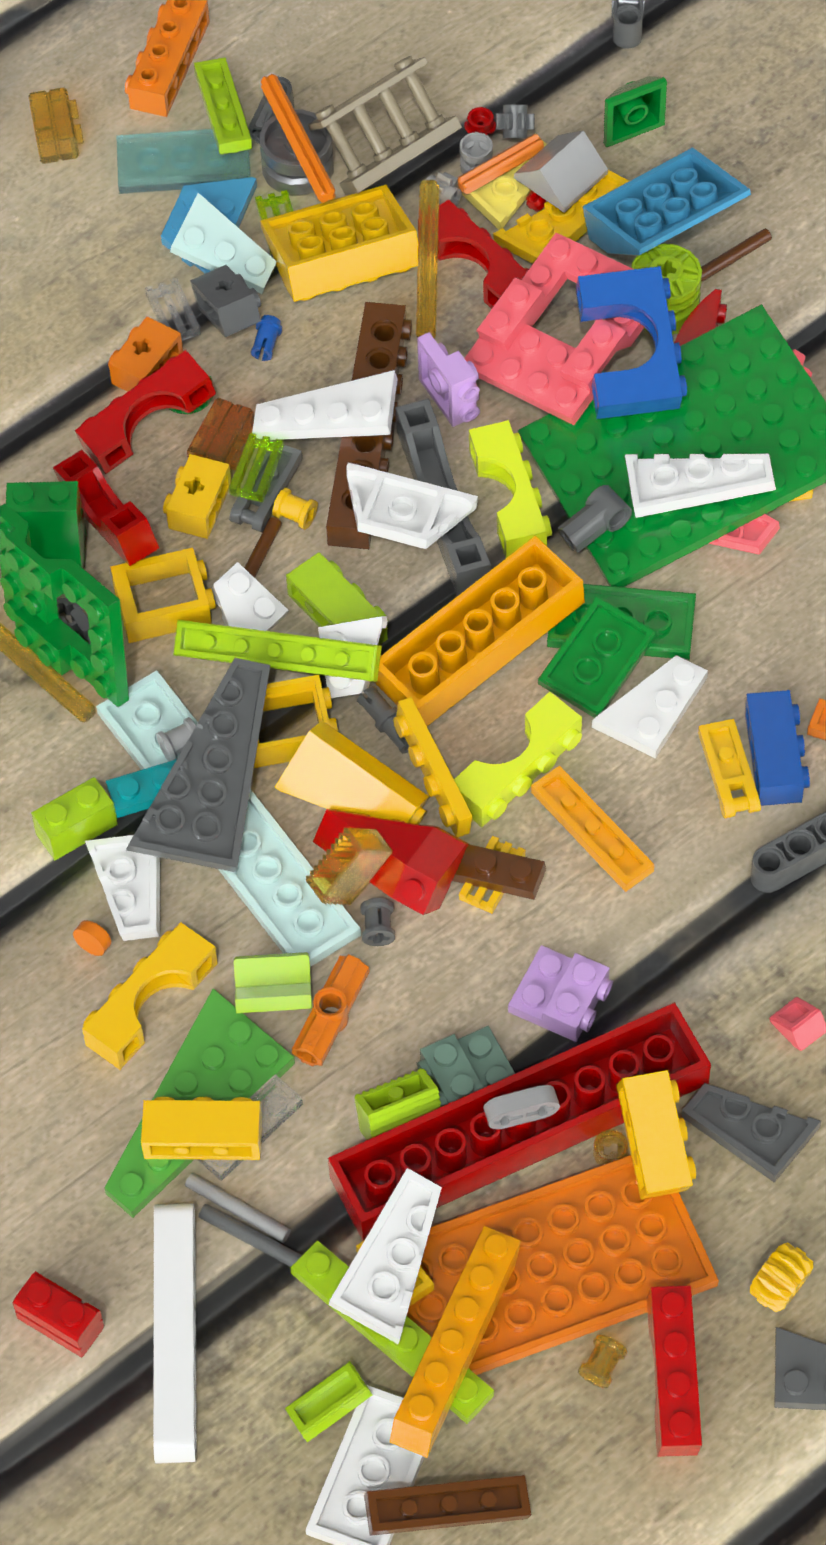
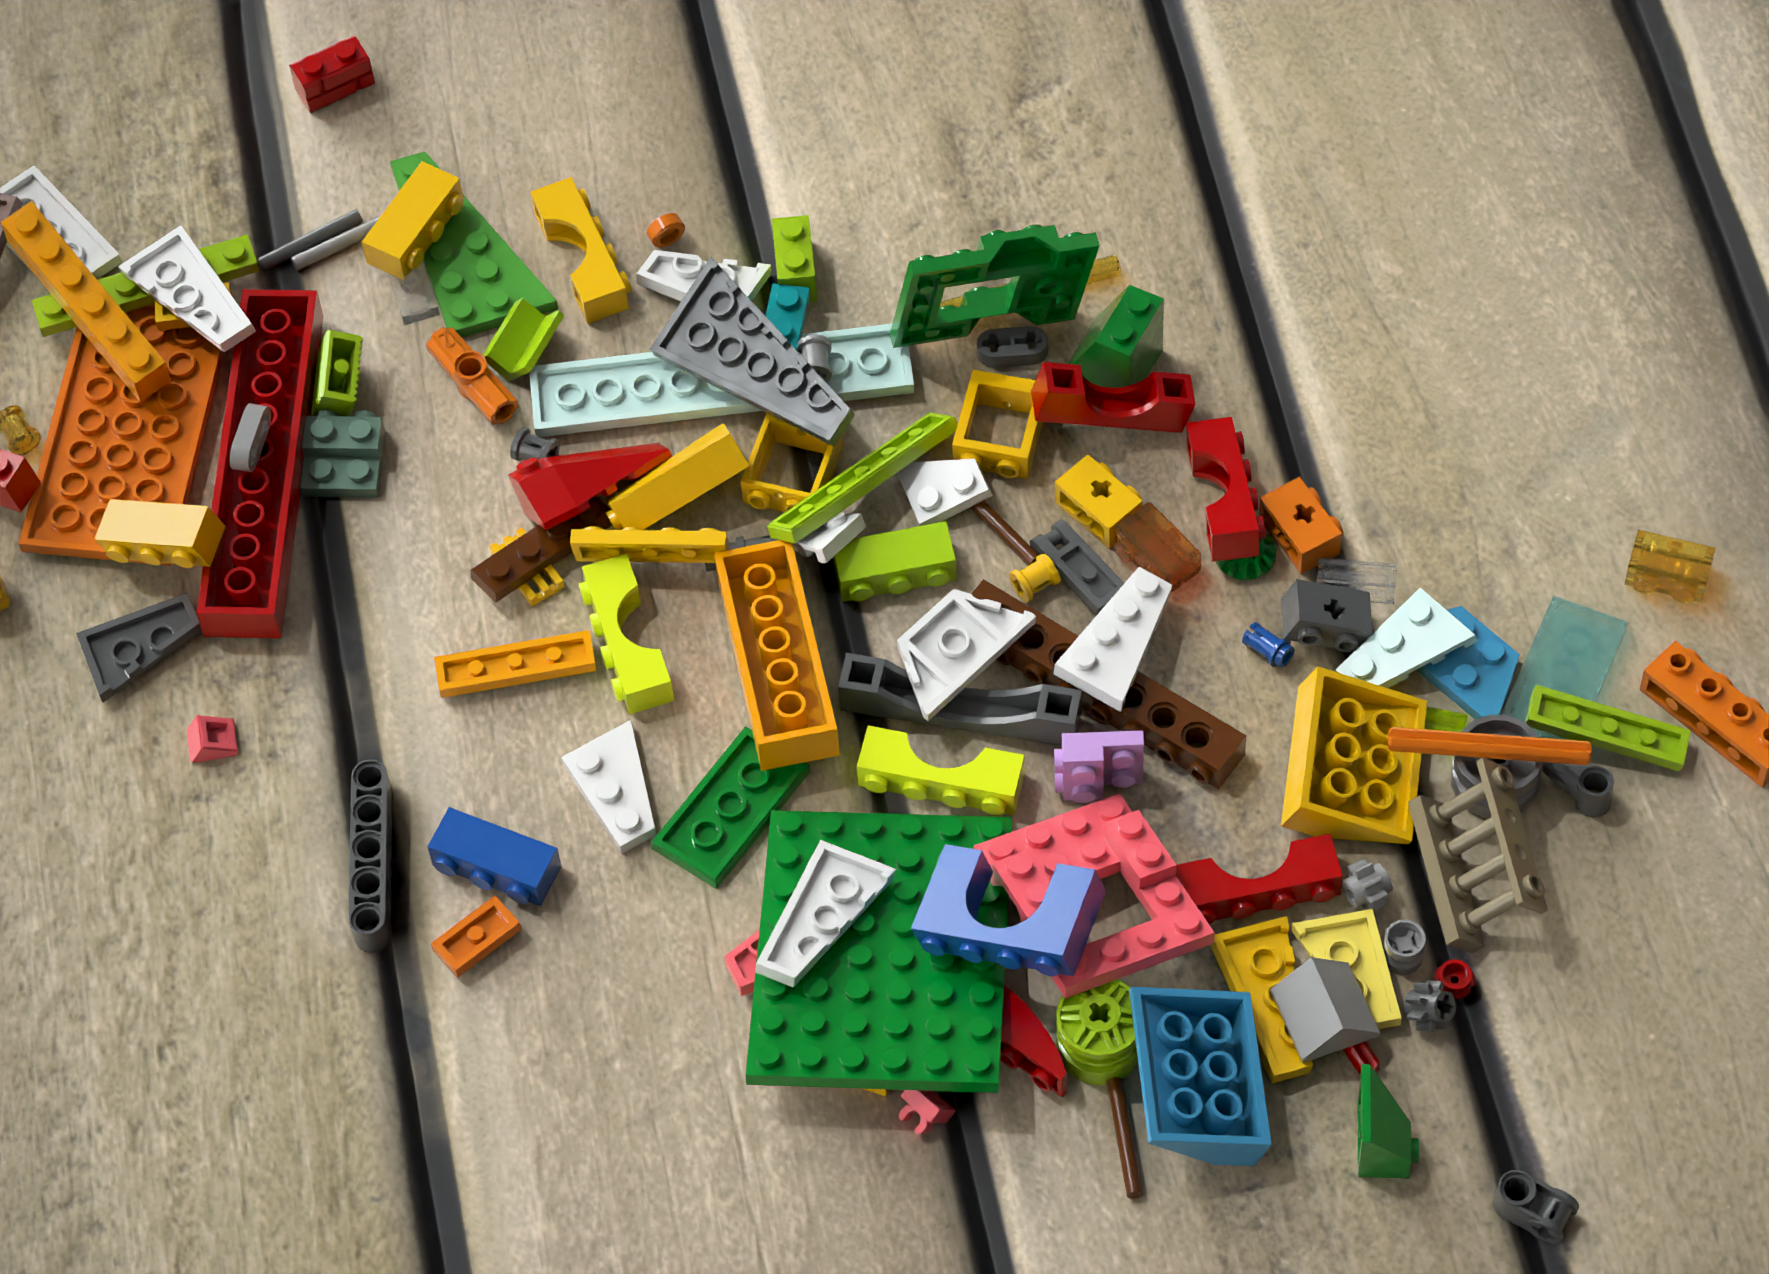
camera: 120 degrees right, 0 degrees up
(174, 1334) = (264, 149): white beam -> none
(263, 445) = (1082, 527): clear neon green tile -> none
(328, 1401) = (125, 225): lime tile -> none
(348, 865) = (585, 426): clear yellow brick -> none
(427, 258) = (1270, 818): clear yellow axle -> none
(500, 164) = (1367, 953): orange axle -> none
(561, 992) = (369, 562): lavender plate -> none
(597, 657) = (694, 755): green tile -> none
(602, 512) = (841, 818): dark grey piece -> none
(729, 767) = (507, 808): yellow plate -> none

